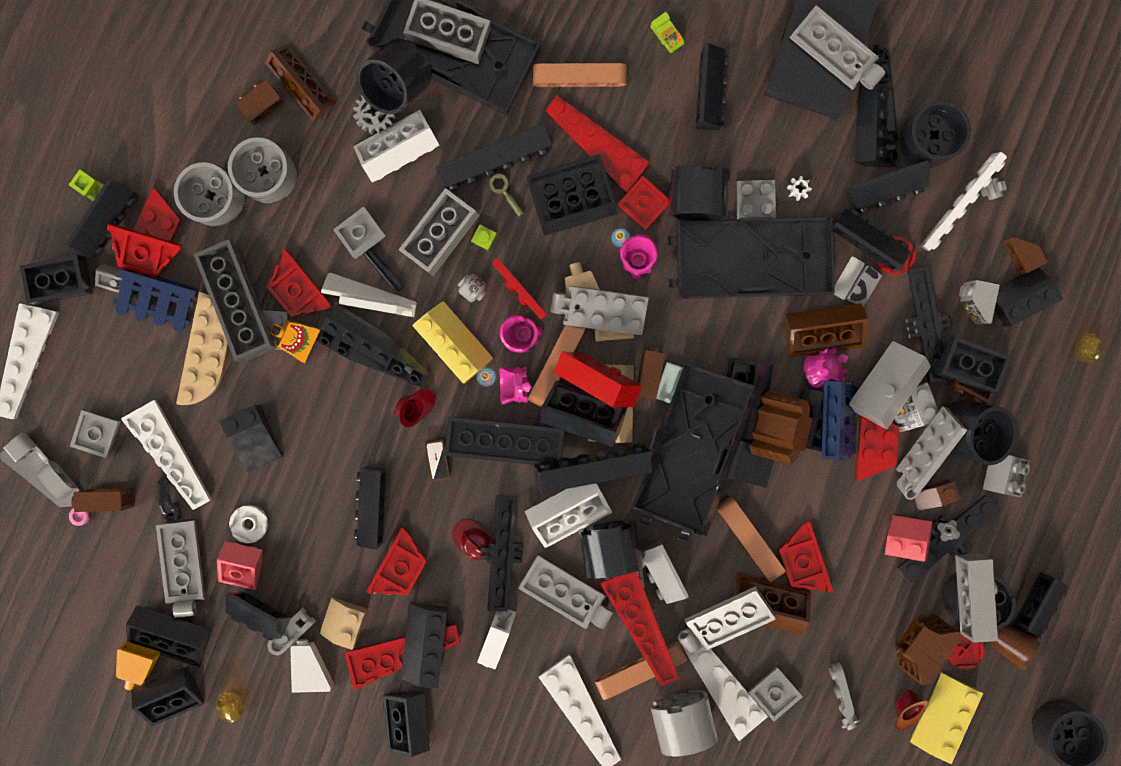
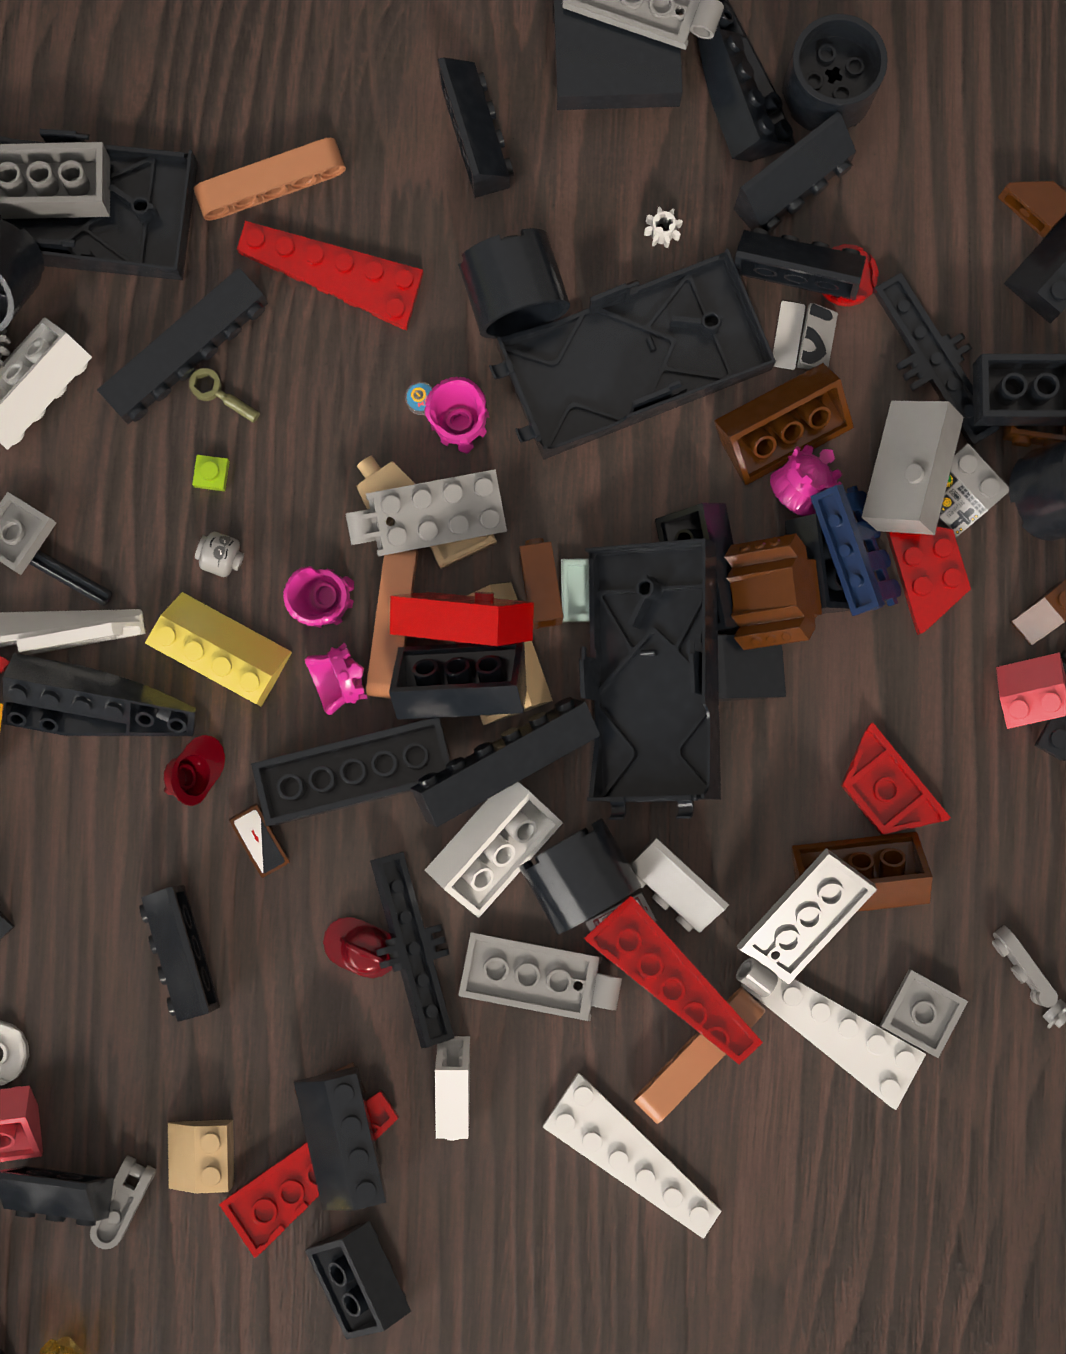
camera: 20 degrees left, 5 degrees down
(308, 669) = (170, 1251): white slope -> none
(399, 567) = (259, 1033): red wing -> none
(439, 232) = (137, 487): light grey brick -> none
(486, 377) = (290, 684): clear tile -> none
(513, 285) = (282, 525): red wing -> none
(572, 195) = (322, 359): black slope -> none
(644, 203) = (436, 333): red plate -> none
(667, 33) = (378, 71): lime leg -> none
(684, 723) = (798, 1111): light grey brick -> none
(750, 539) = (792, 784): nougat beam -> none
(755, 199) = (602, 264): light grey plate -> none
(929, 452) = (1012, 547): light grey hinge -> none
(979, 300) = (997, 293): light grey slope -> none
(992, 164) = (902, 203): white wing -> none
(994, 189) = (953, 124): light grey gear -> none

